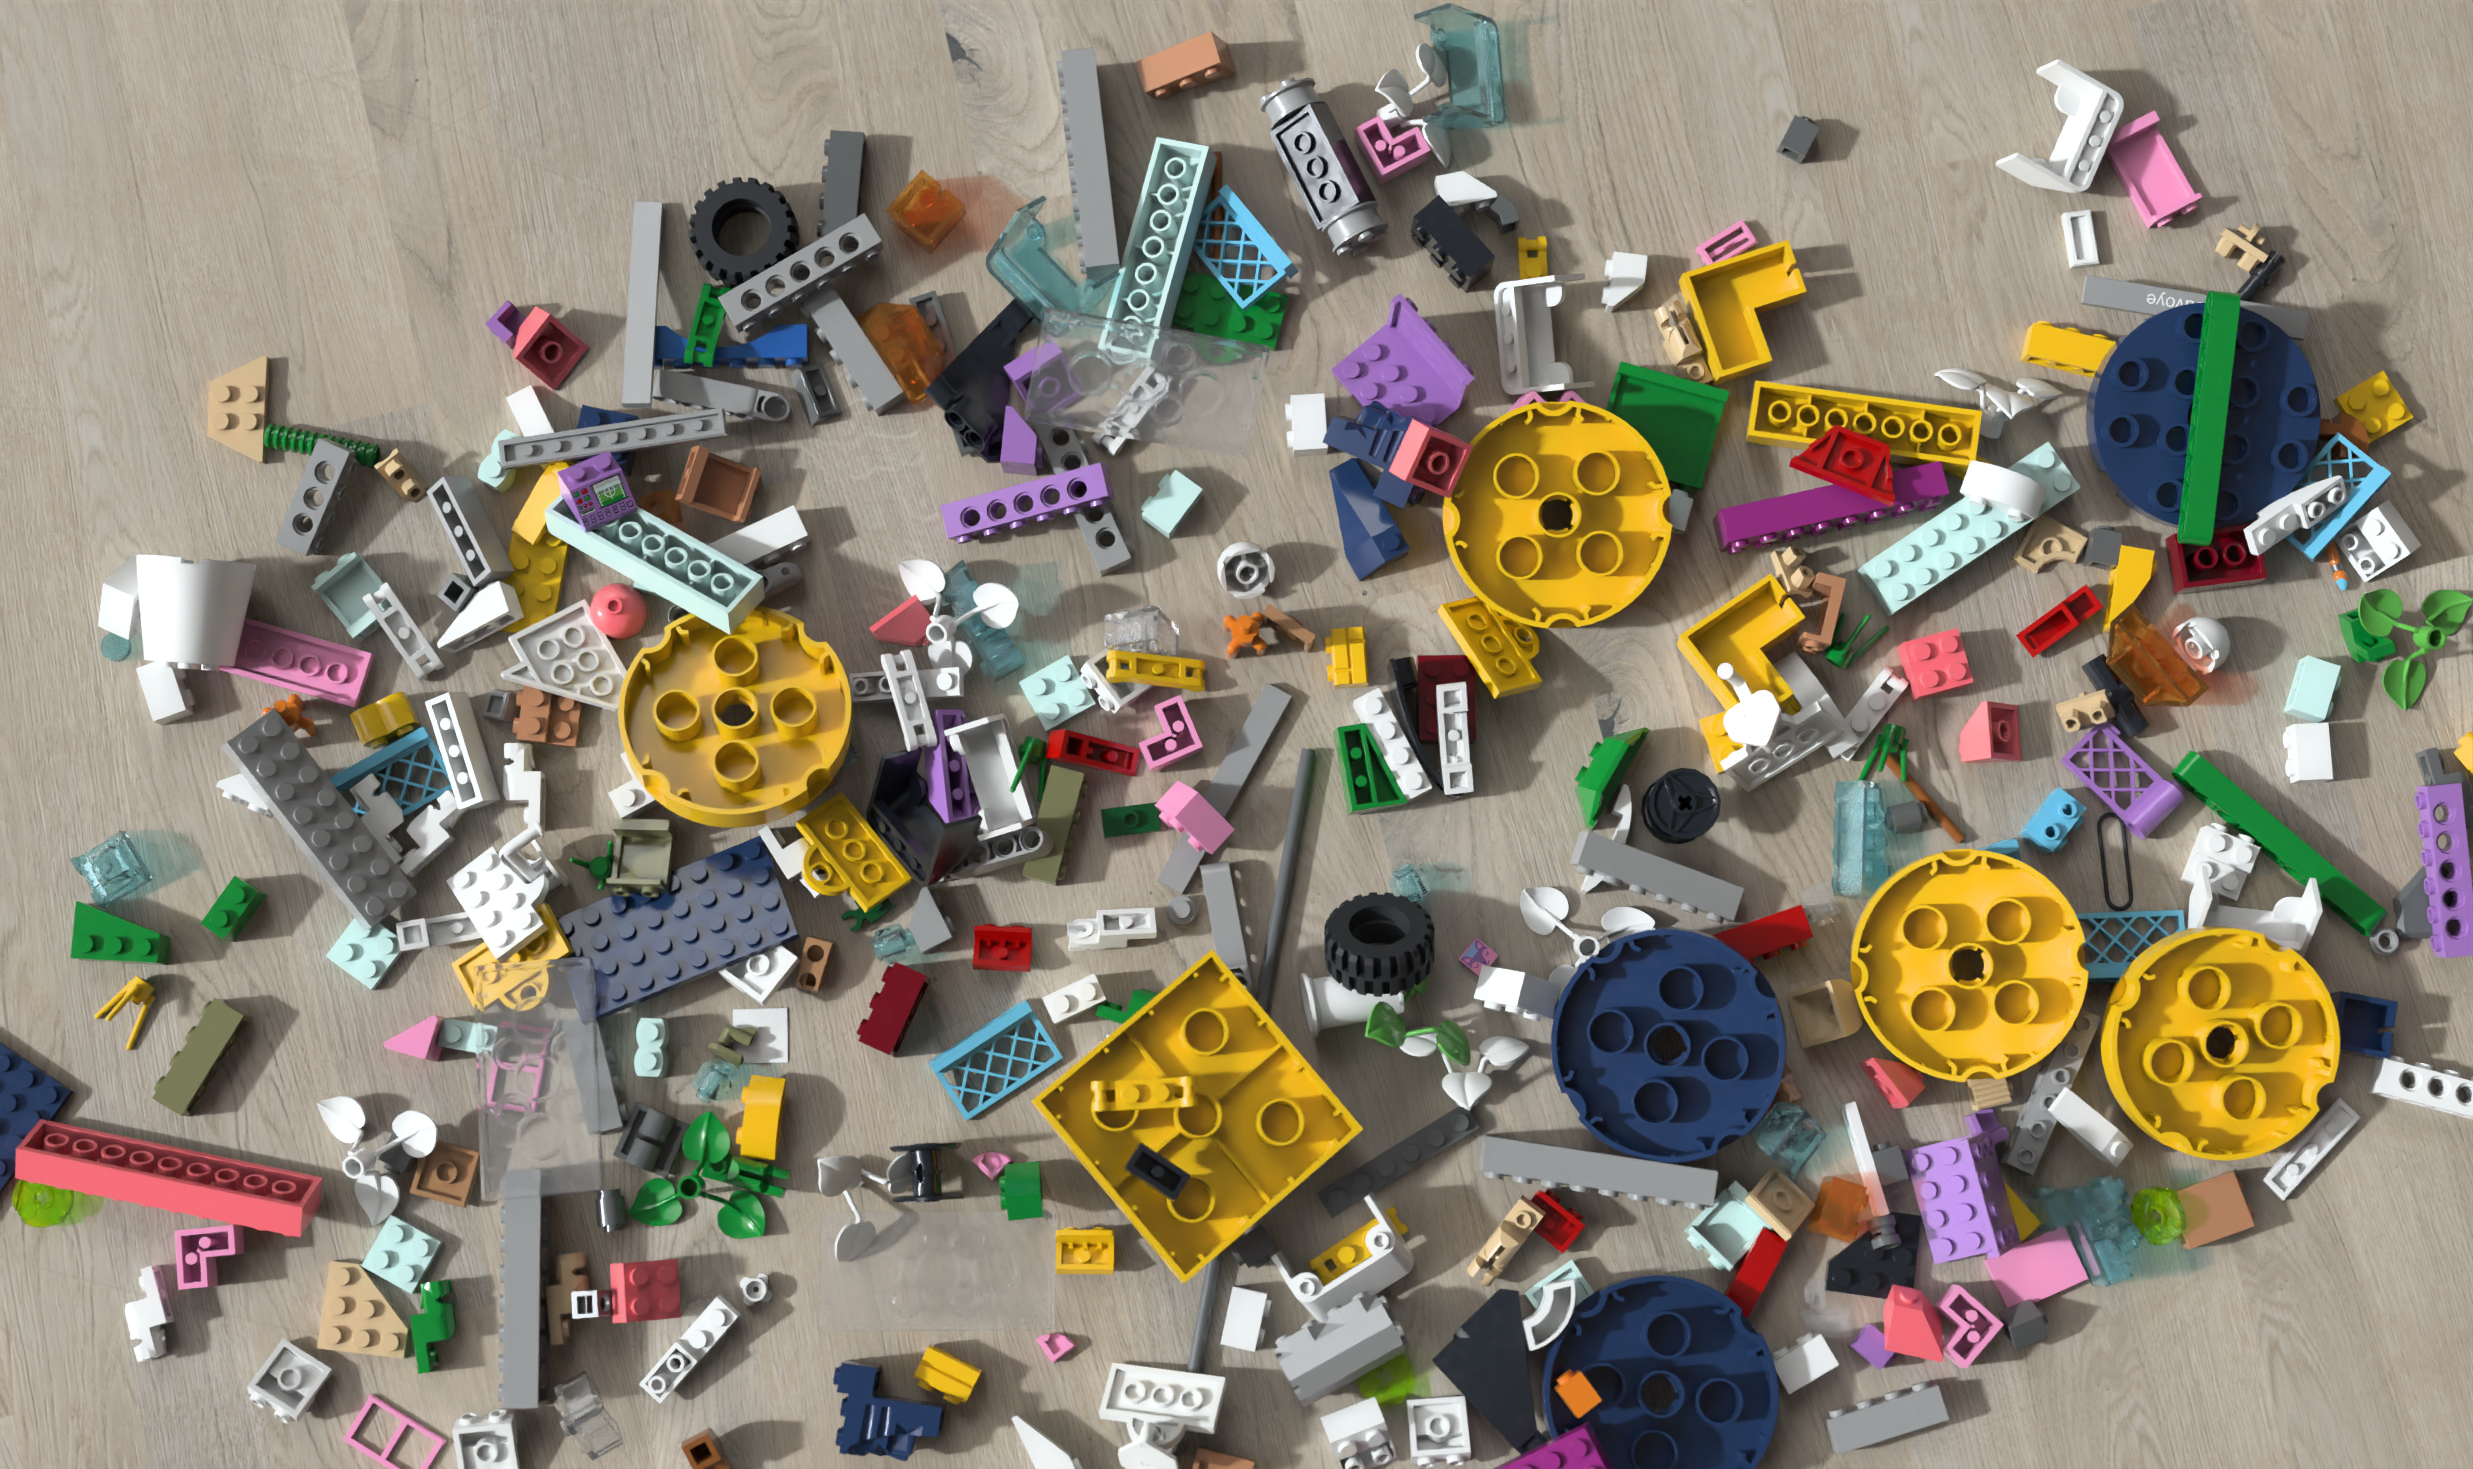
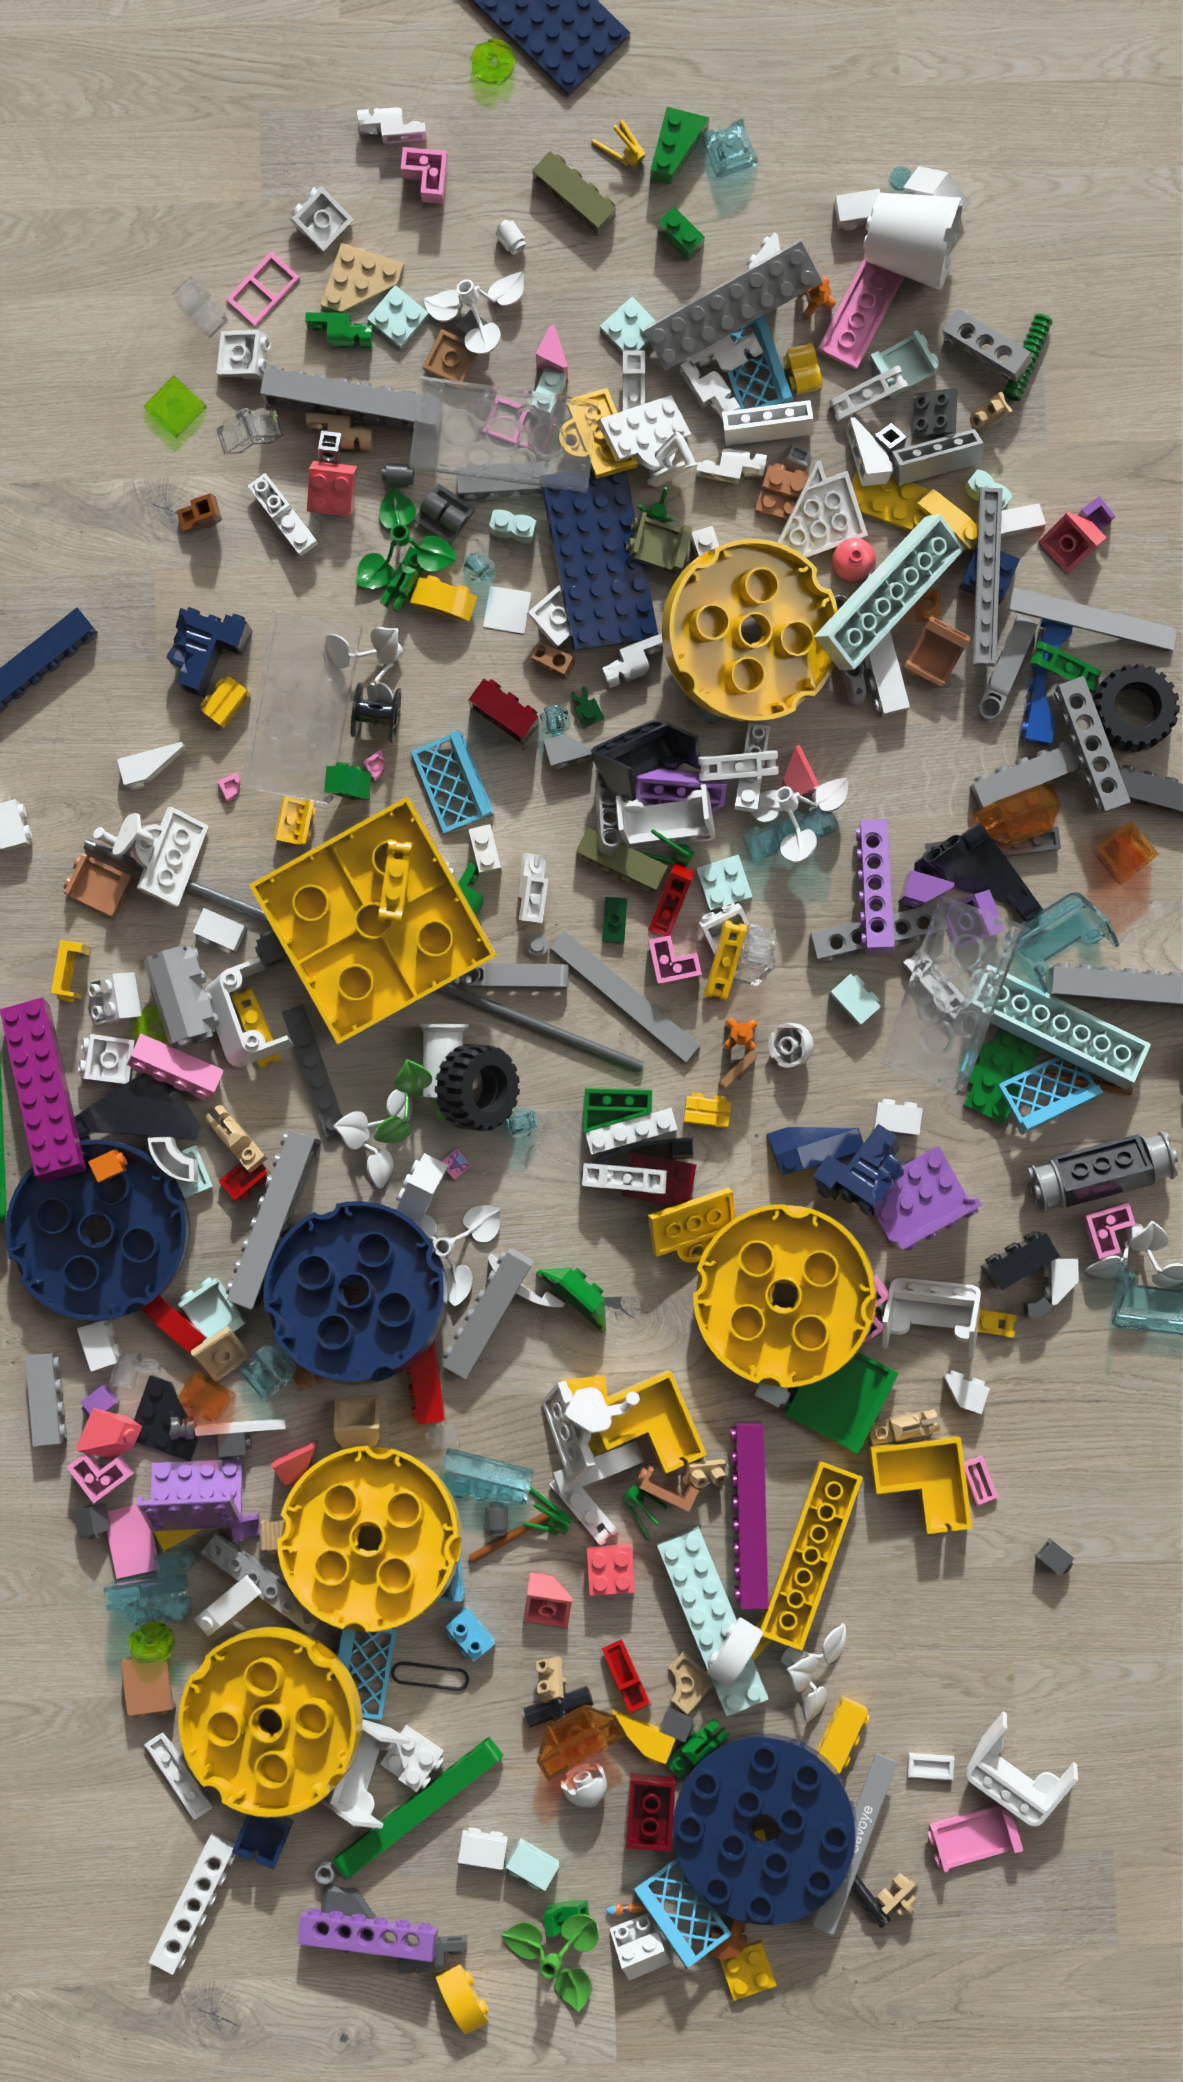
camera: 105 degrees right, 5 degrees up
(168, 1178) = (487, 153): coral brick -> none
(240, 409) = (1069, 300): tan wing -> none
(273, 1127) = (511, 237): none -> white brick
(415, 544) = (935, 414): none -> dark grey plate
(596, 491) = (947, 556): medium lavender slope -> none
(729, 1033) = (509, 595): olive piece -> none
(751, 1296) = (313, 567): white plate -> none
(815, 394) = (996, 741): dark grey slope -> none
(849, 855) = (629, 700): yellow plate -> none
(1002, 948) = (535, 803): red bracket -> none
(1156, 1172) = (333, 878): black brick -> none
(1190, 812) = (608, 964): bright pink brick -> none
(1431, 458) = (845, 1203): coral brick -> none
(1432, 1337) = (175, 1067): none -> bright pink brick
(1699, 808) = (538, 1359): black piece -> none
(1850, 462) = (780, 1535): red wing -> none
(2124, 517) = (696, 1748): none -> green plate
(2150, 807) = (469, 1717): medium lavender piece -> none
(2208, 418) = (759, 1830): green beam -> none
(2296, 510) = (674, 1887): white slope -> none

